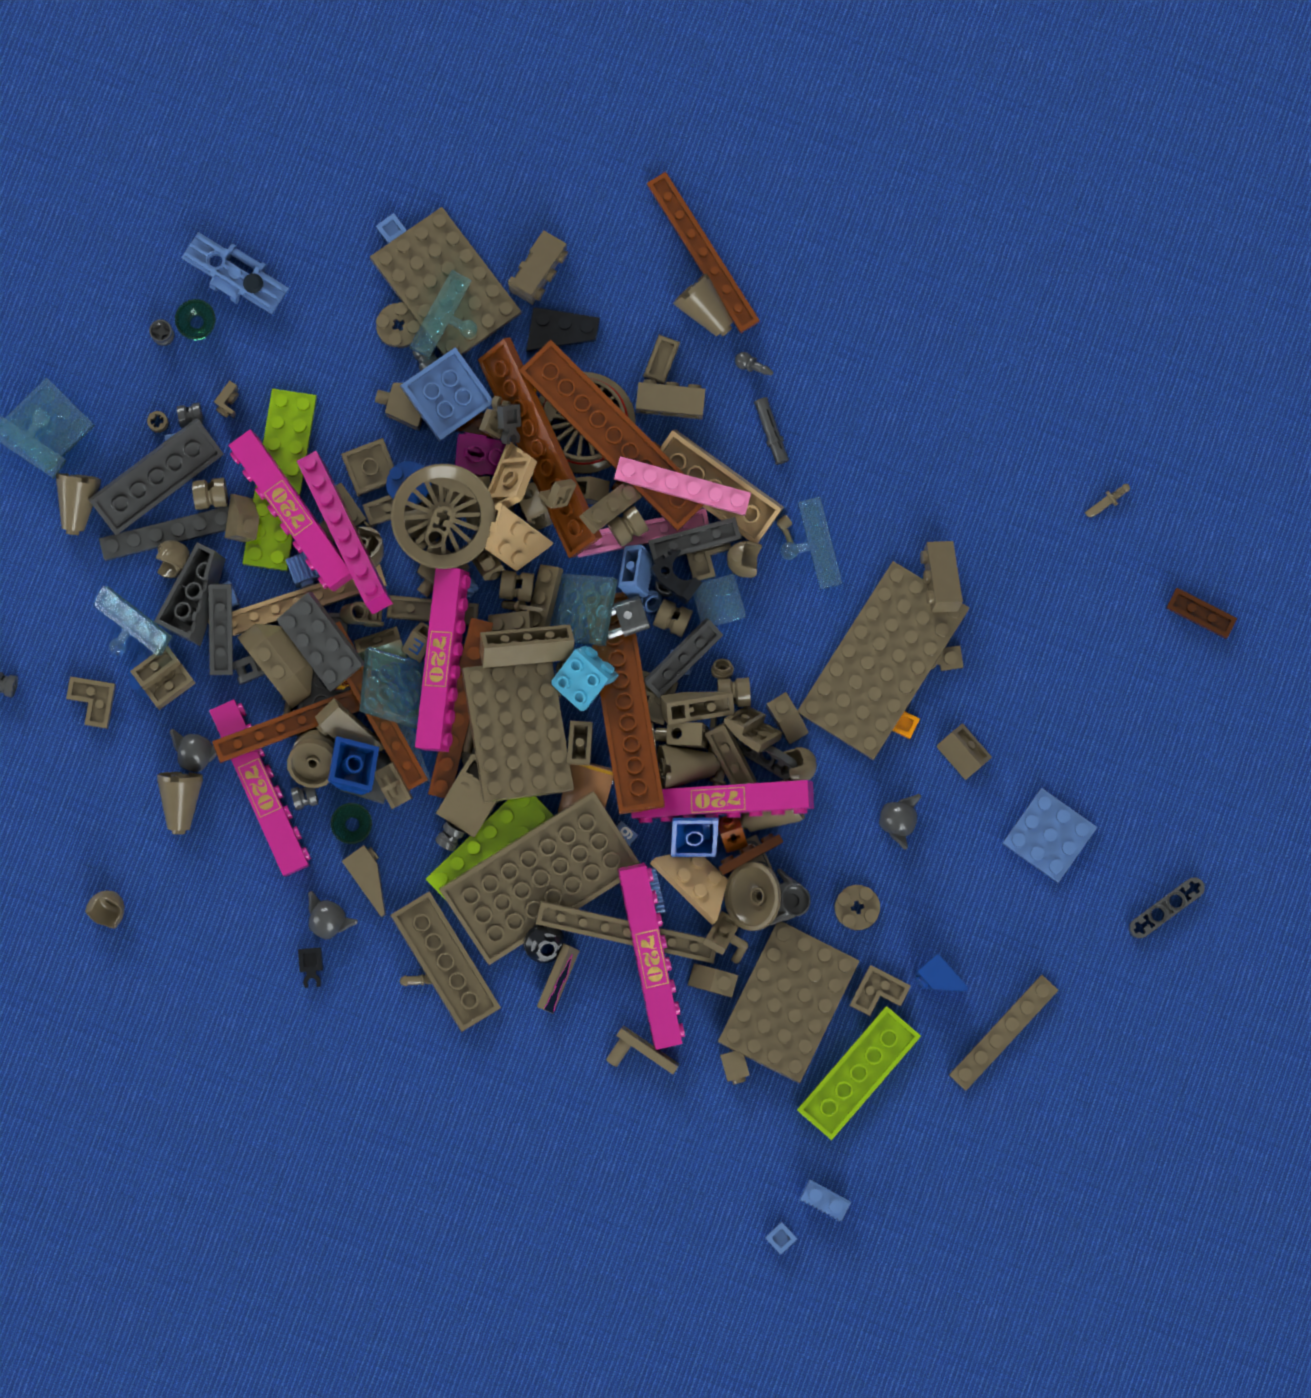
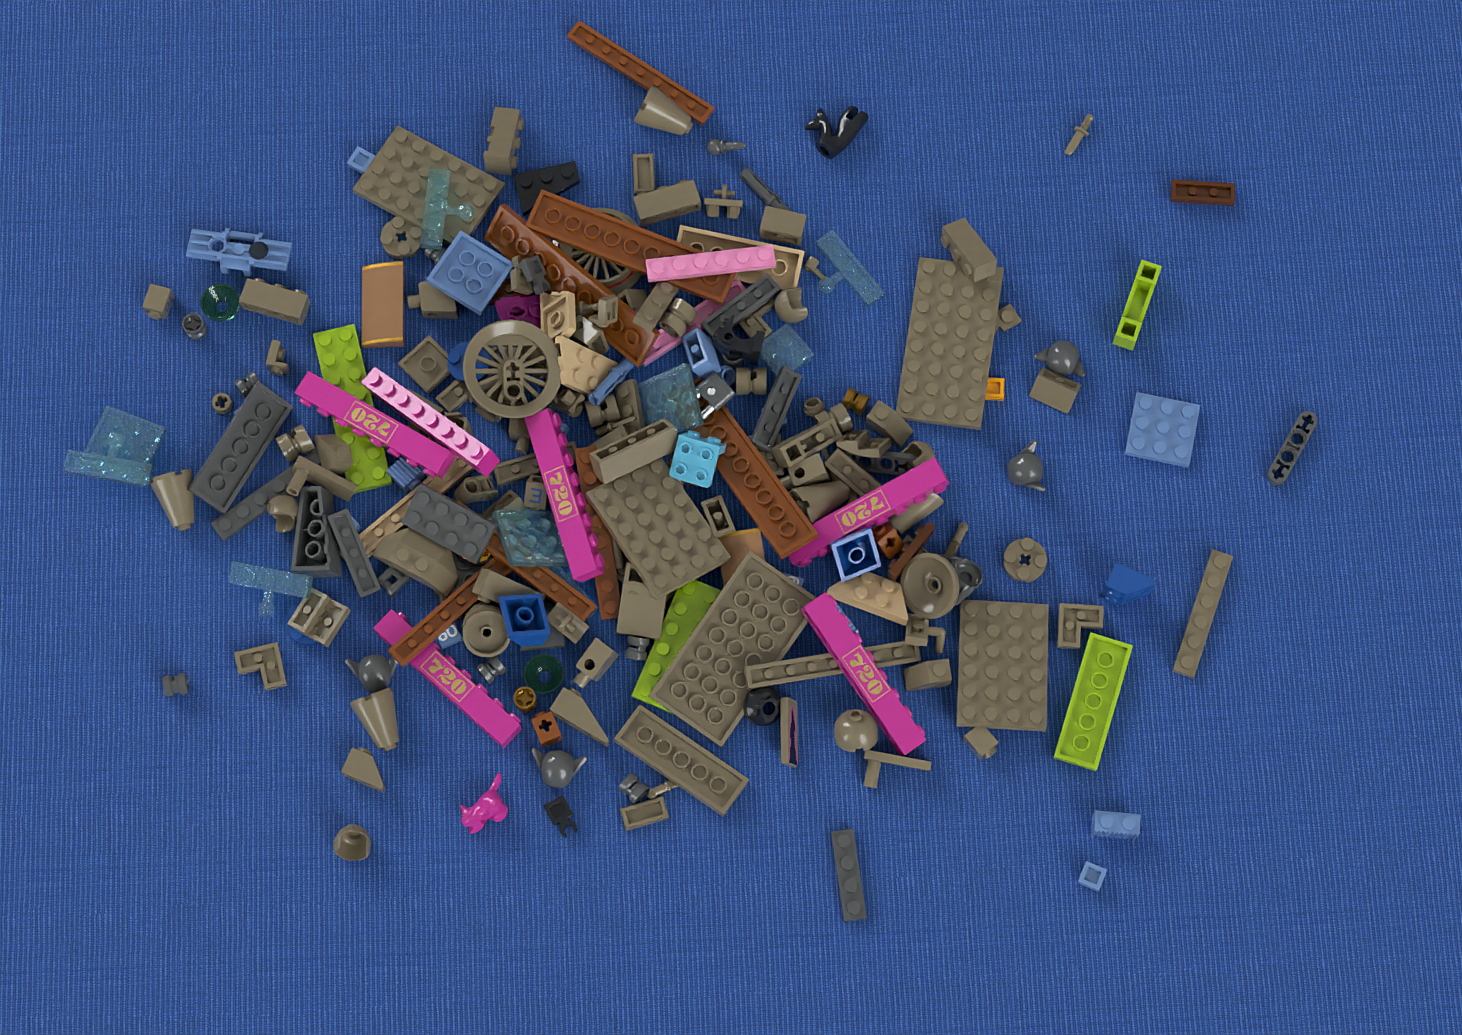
camera: 20 degrees left, 10 degrees down
(136, 293) = (158, 302): none -> dark tan brick
(146, 842) = (363, 769): none -> dark tan slope
(209, 527) = (319, 476): none -> dark tan piece
(246, 928) = (488, 807): none -> dark pink animal
(249, 339) = (275, 301): none -> dark tan brick
(279, 748) = (450, 637): none -> medium blue tile
(321, 838) = (522, 697): none -> pearl gold wheel
(338, 883) = (551, 736): none -> dark orange brick
(352, 387) = (383, 305): none -> medium nougat slope
(390, 996) = (644, 813): none -> dark tan tile
(392, 973) = (633, 788): none -> dark grey wheel
(411, 828) = (596, 653): none -> dark tan torso
(540, 479) = (583, 308): none -> dark tan piece
(543, 558) = (615, 376): none -> medium blue pin
(554, 1137) = (848, 875): none -> dark grey plate
(620, 1006) = (855, 730): none -> dark tan cylinder
(733, 429) = (712, 204): none -> dark tan hips
(767, 685) = (860, 401): none -> pearl gold wheel
(773, 472) = (782, 226): none -> dark tan panel
(800, 860) = (956, 540): none -> dark tan piece
(859, 408) = (848, 127): none -> black piece
(985, 723) = (1062, 358): none -> dark grey piece
(1081, 701) = (1137, 305): none -> lime arch

